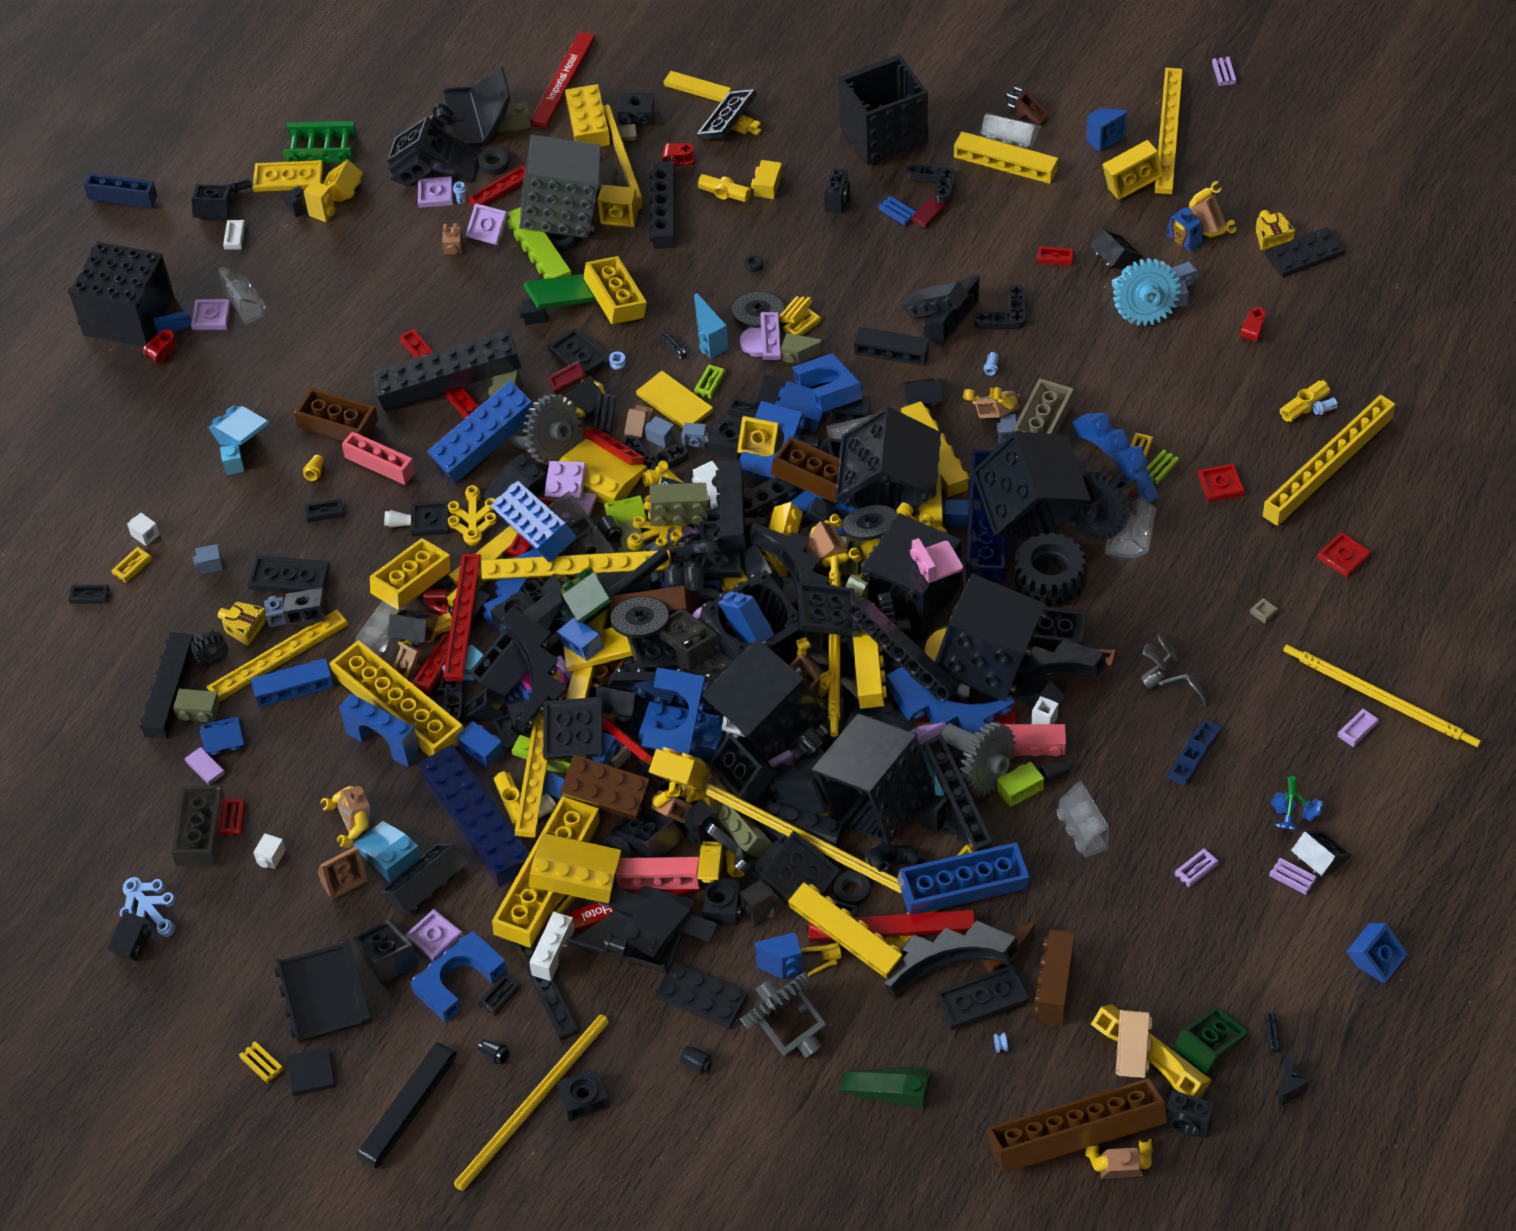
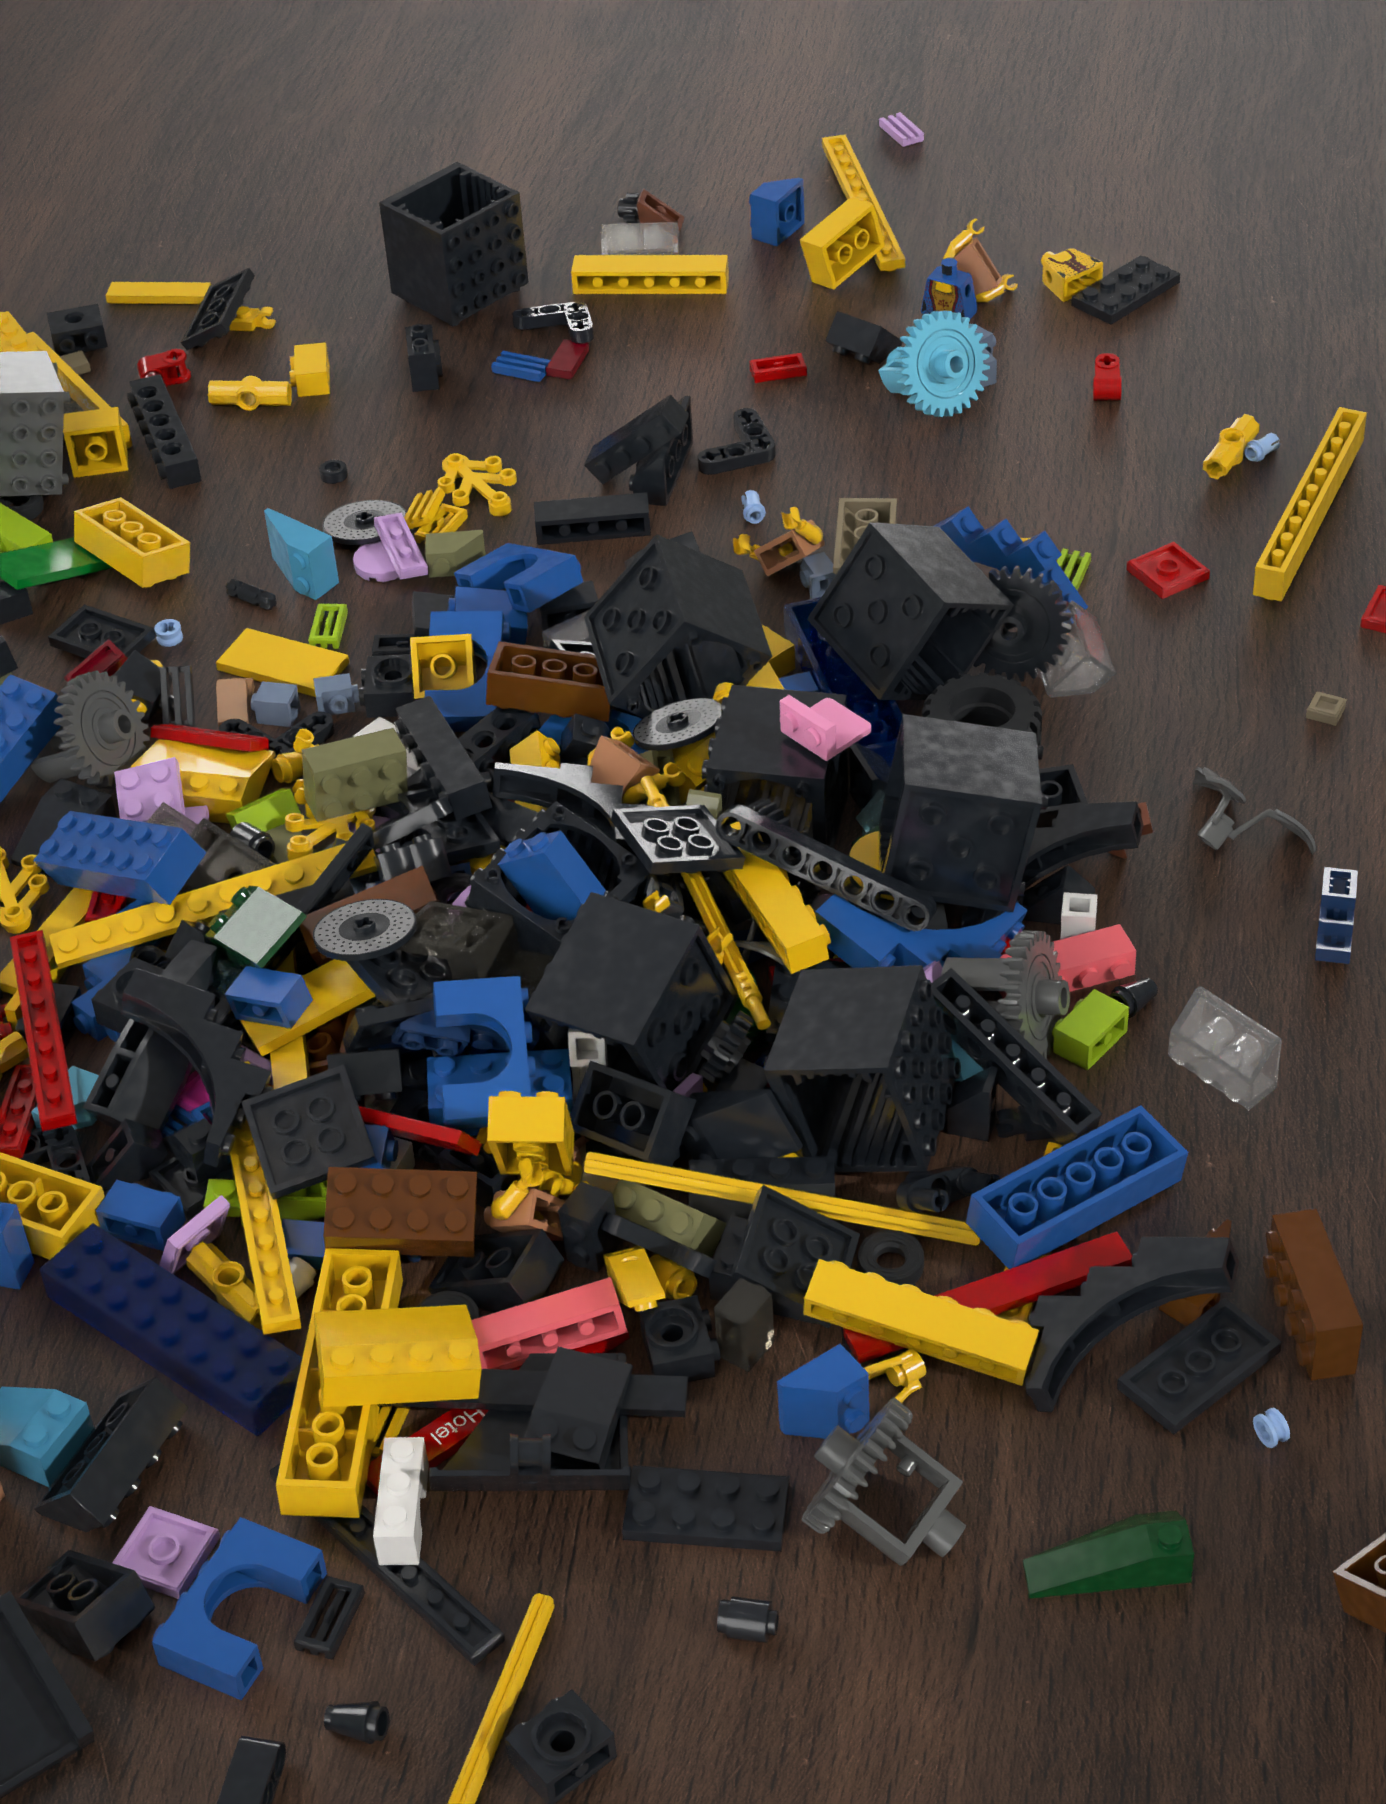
camera: 20 degrees left, 10 degrees down
(505, 764) = (203, 1227): none -> lavender tile
(828, 281) = (460, 466): none -> yellow plant

